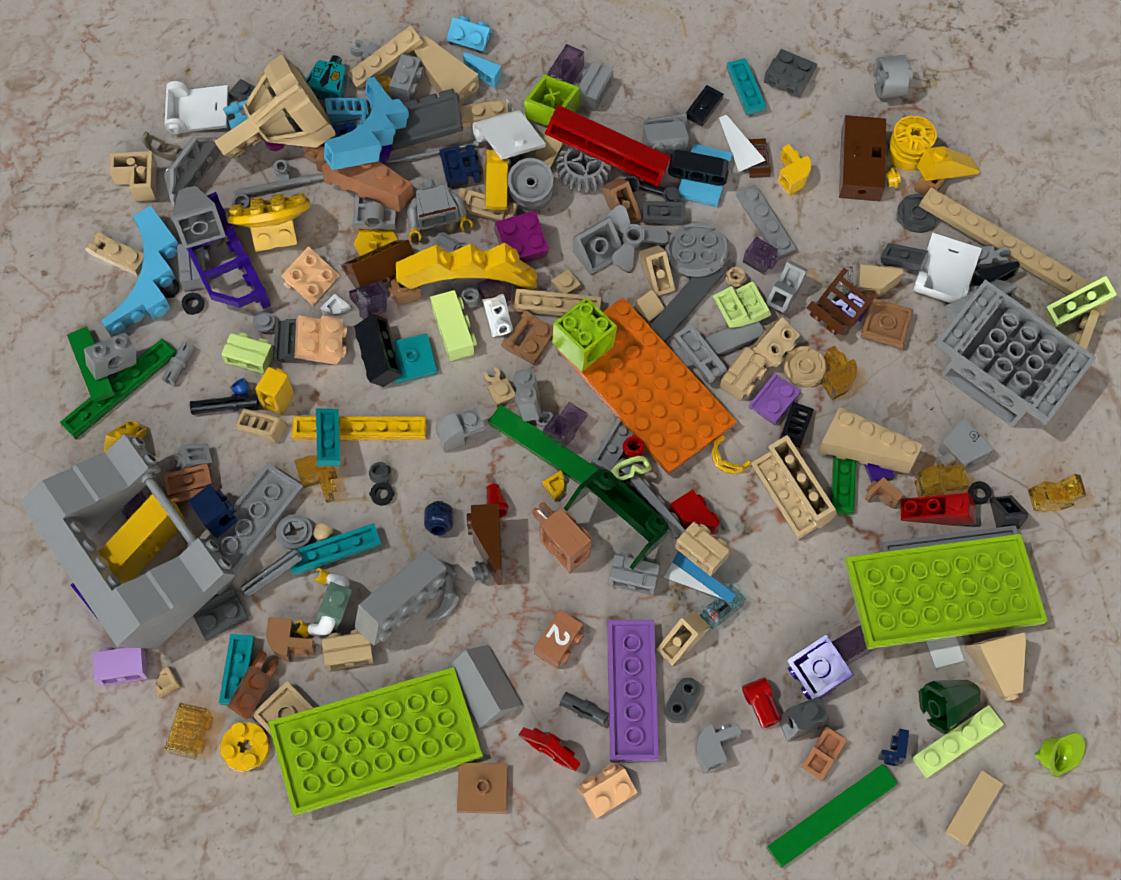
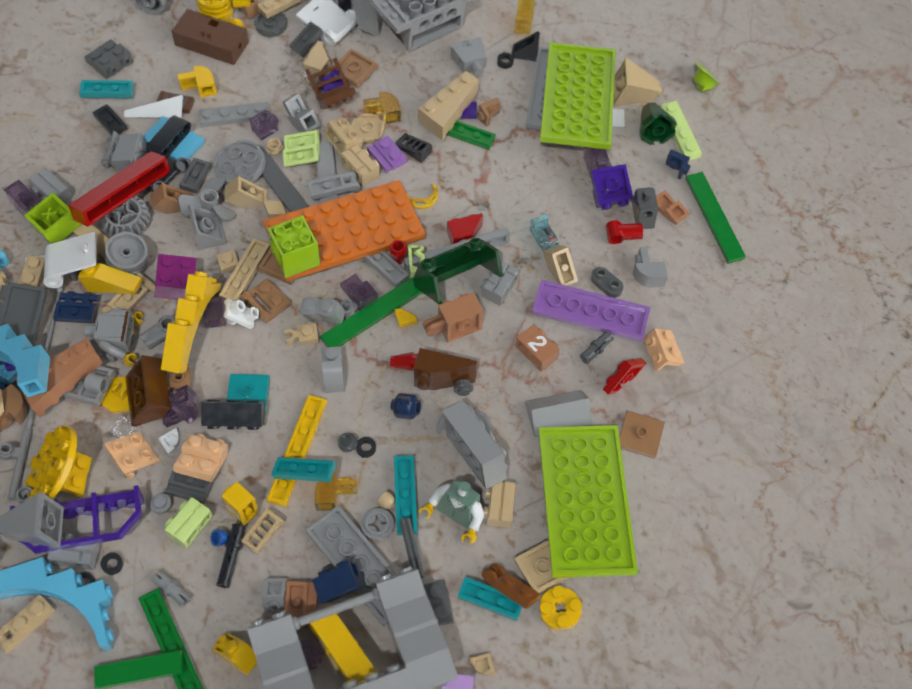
camera: 75 degrees left, 5 degrees down
(110, 356) = (144, 642): light grey brick -> none
(188, 731) = (536, 650): clear yellow brick -> none
(282, 640) = (474, 555): medium nougat brick -> none
(453, 325) = (232, 351): yellowish green brick -> none
(470, 292) = (209, 328): light grey plate -> none
(689, 574) = (512, 247): dark azure sticker -> none
(703, 548) = (501, 225): tan brick -> none
(794, 488) = (466, 159): tan brick -> none
(938, 479) = (492, 76): clear yellow brick -> none
(939, 509) = (512, 83): red slope -> none
(973, 808) = (728, 136): tan tile -> none

